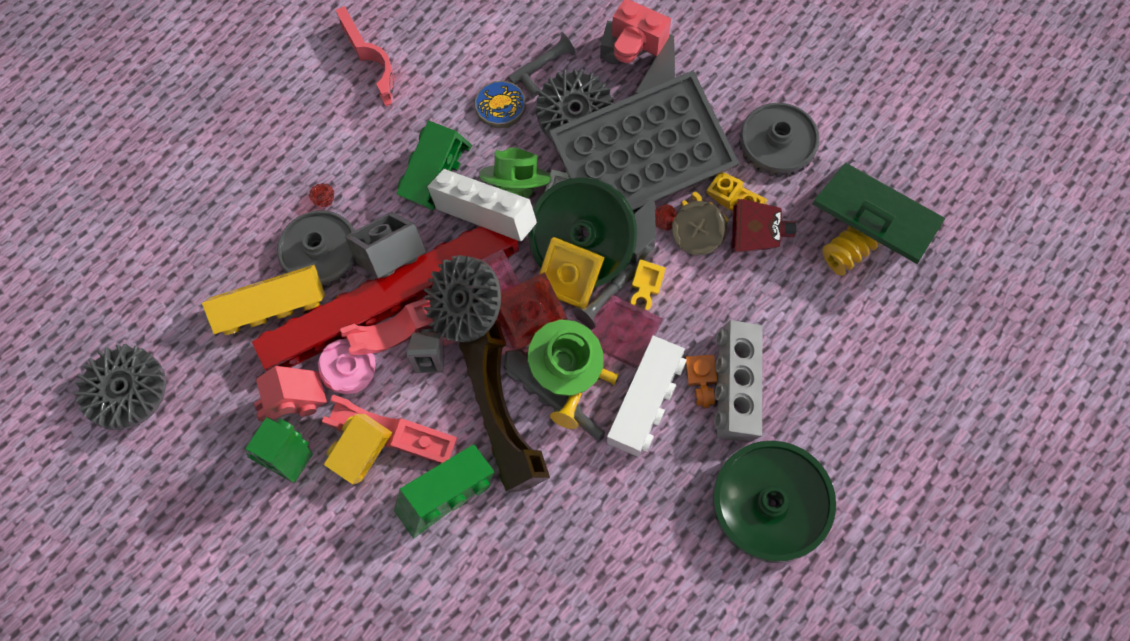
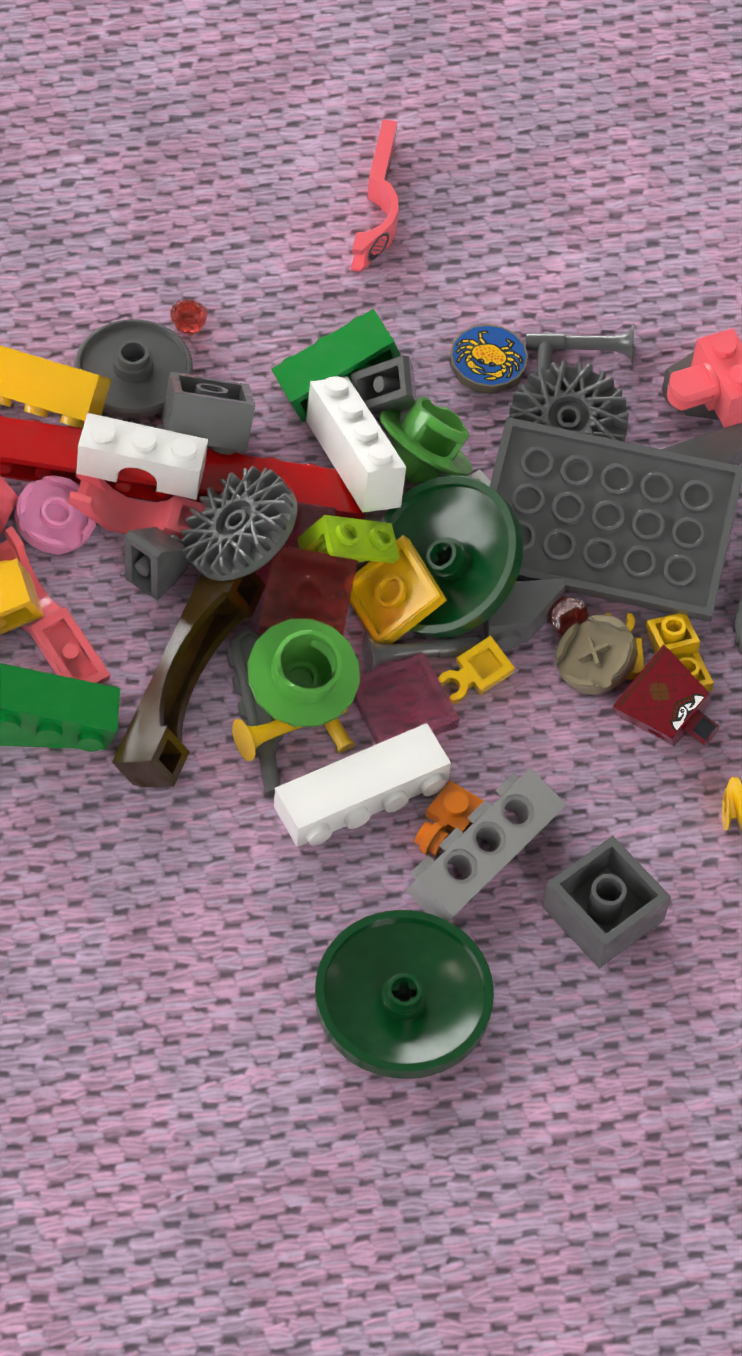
camera: 30 degrees right, 10 degrees down
(358, 302) = (169, 456): none -> white arch
(471, 158) = (387, 385): none -> dark grey slope
(529, 262) = (351, 539): none -> lime bracket
(827, 363) = (606, 901): none -> dark grey brick

